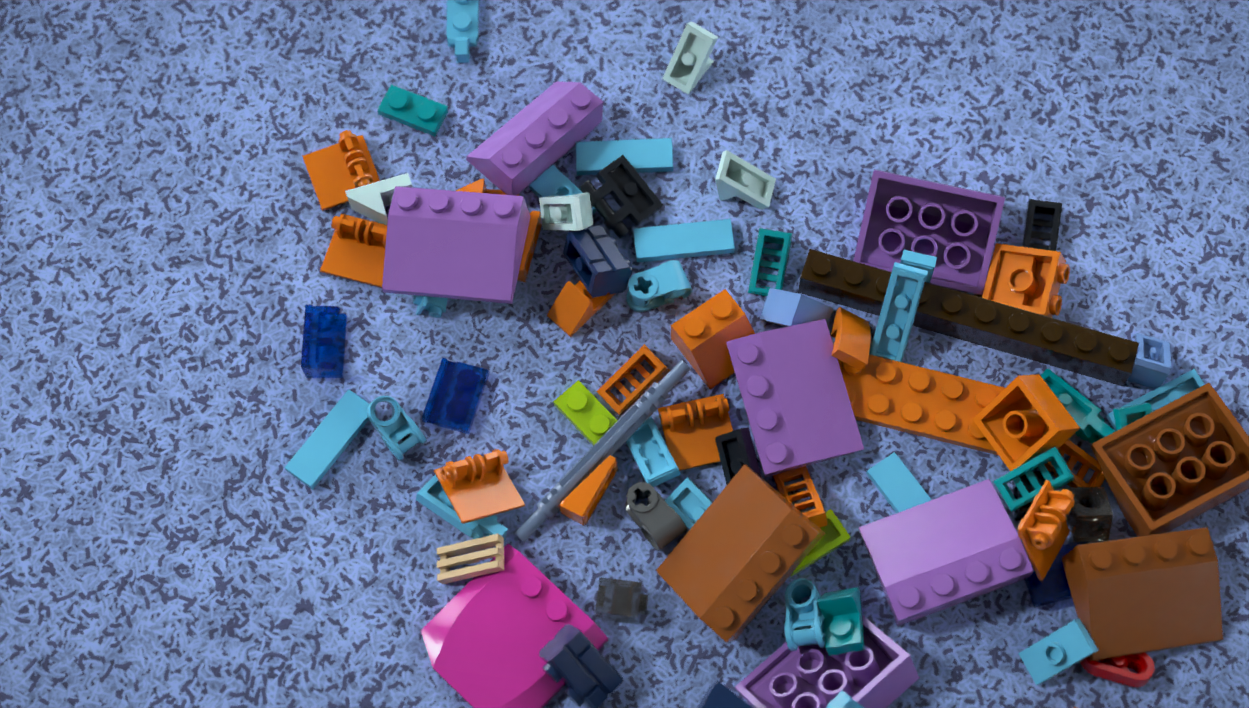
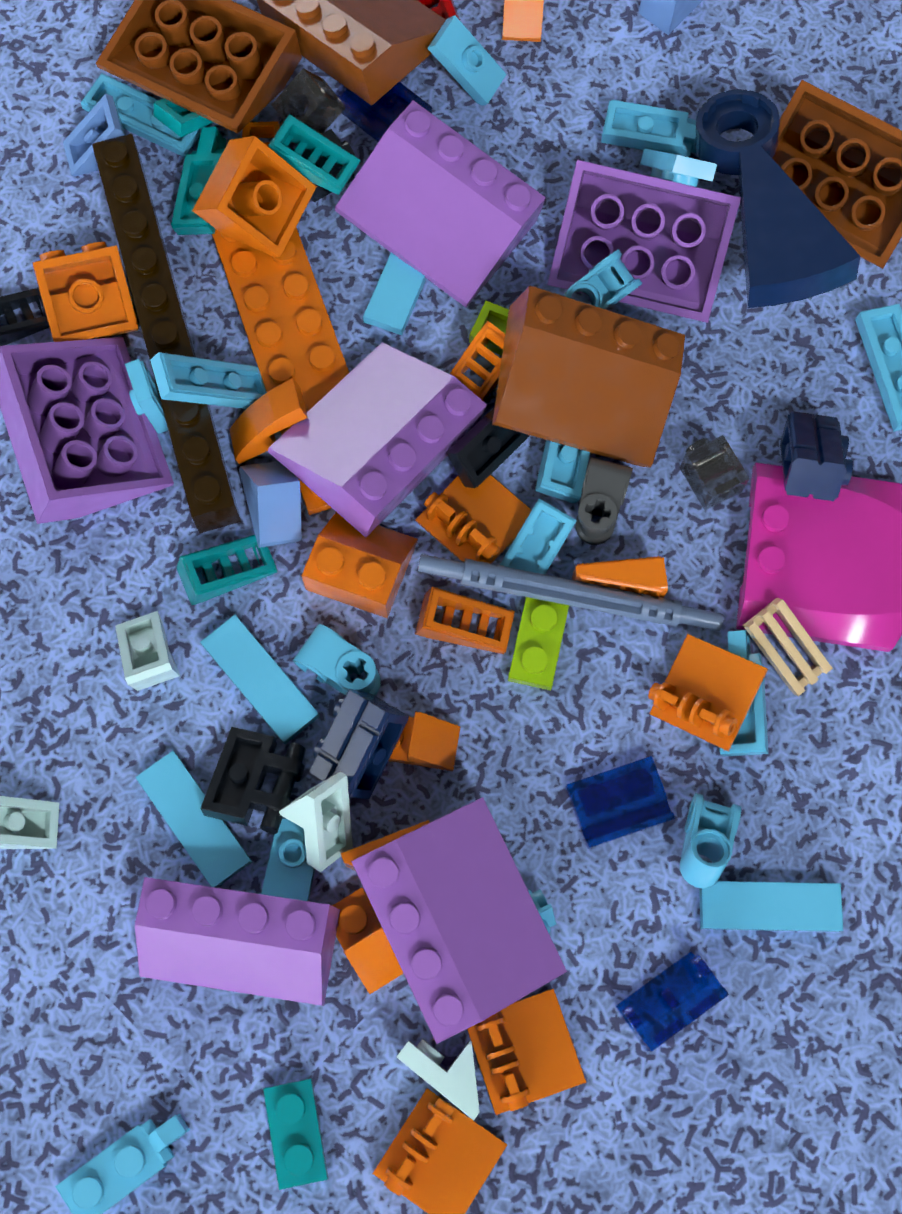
camera: 130 degrees left, 5 degrees up
(842, 620) = (575, 254): teal slope -> none
(1046, 527) = (370, 105): orange hinge -> none

